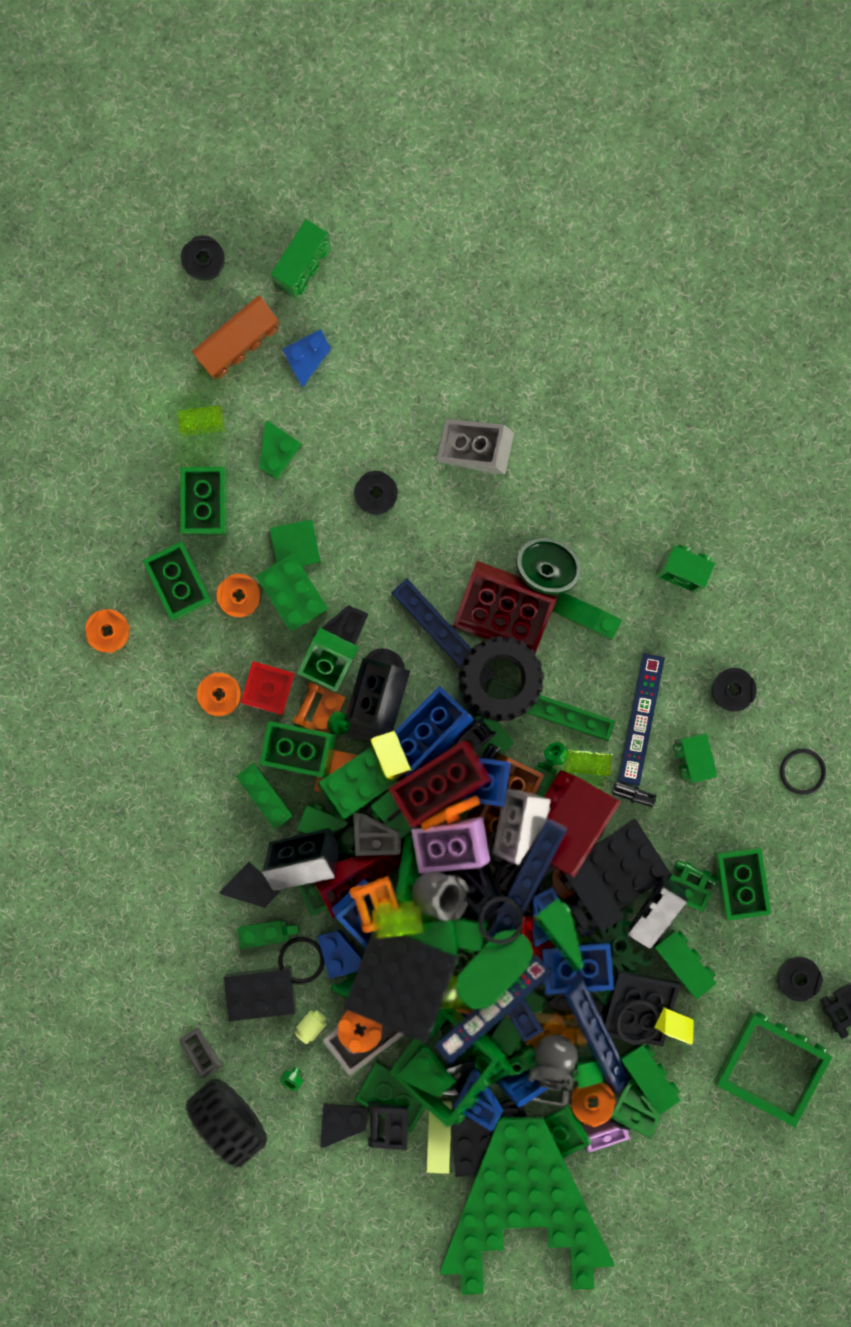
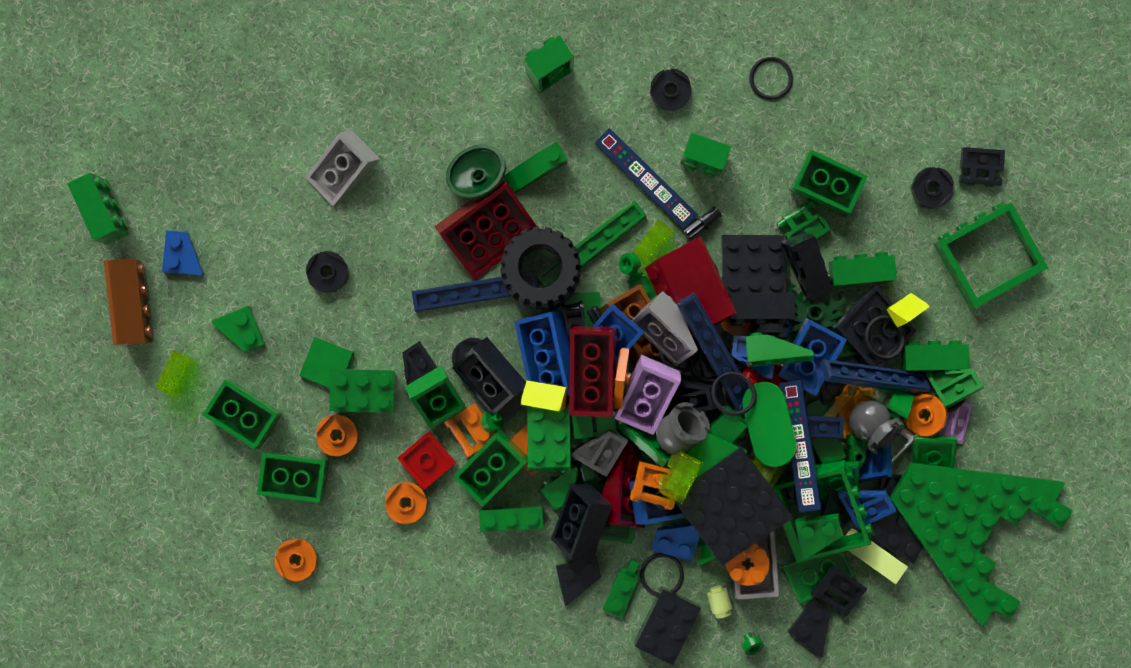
camera: 50 degrees left, 0 degrees up
(194, 249) = (34, 288): black plate -> none

